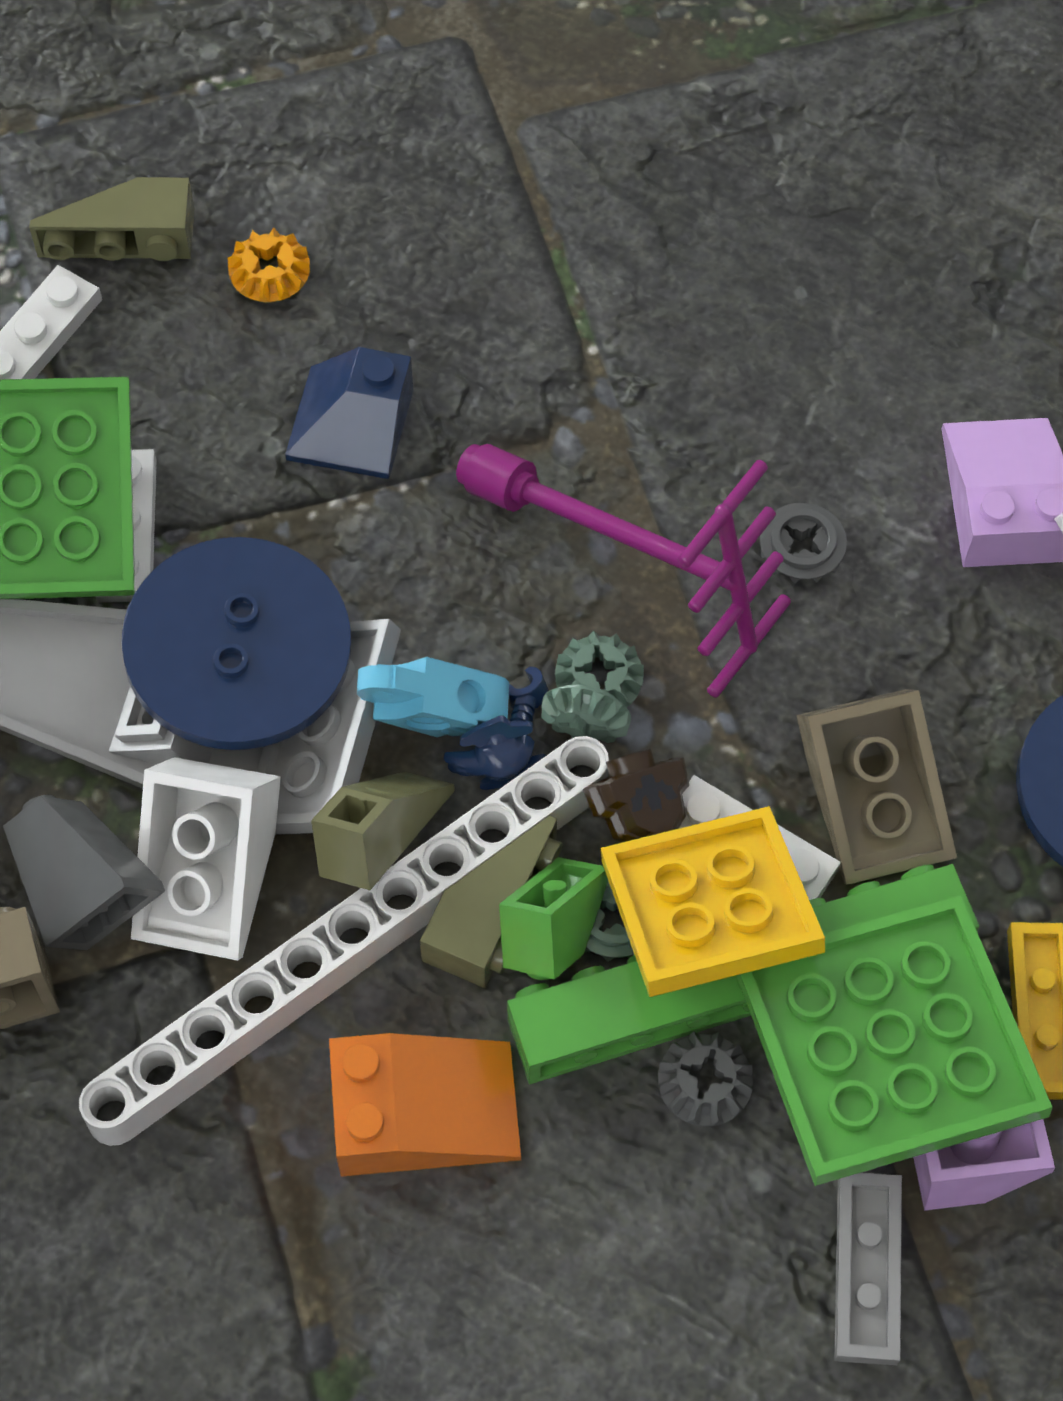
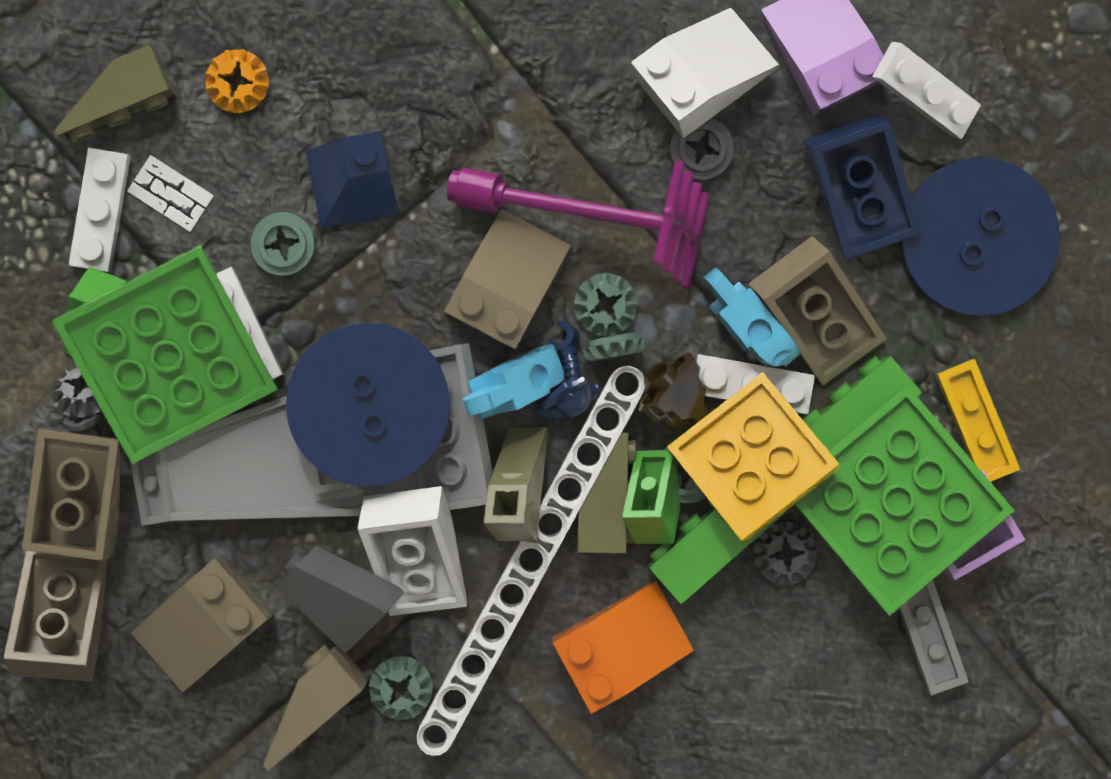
camera: 20 degrees left, 25 degrees up
(85, 1061) = (419, 686): none -> sand green gear
(126, 351) = (170, 193): none -> white sticker
(215, 436) = (267, 233): none -> sand green gear
(482, 594) = (507, 279): none -> dark tan slope
(781, 761) = (750, 322): none -> medium azure piece
(837, 450) = (702, 69): none -> white slope
(995, 652) = (862, 185): none -> dark blue slope

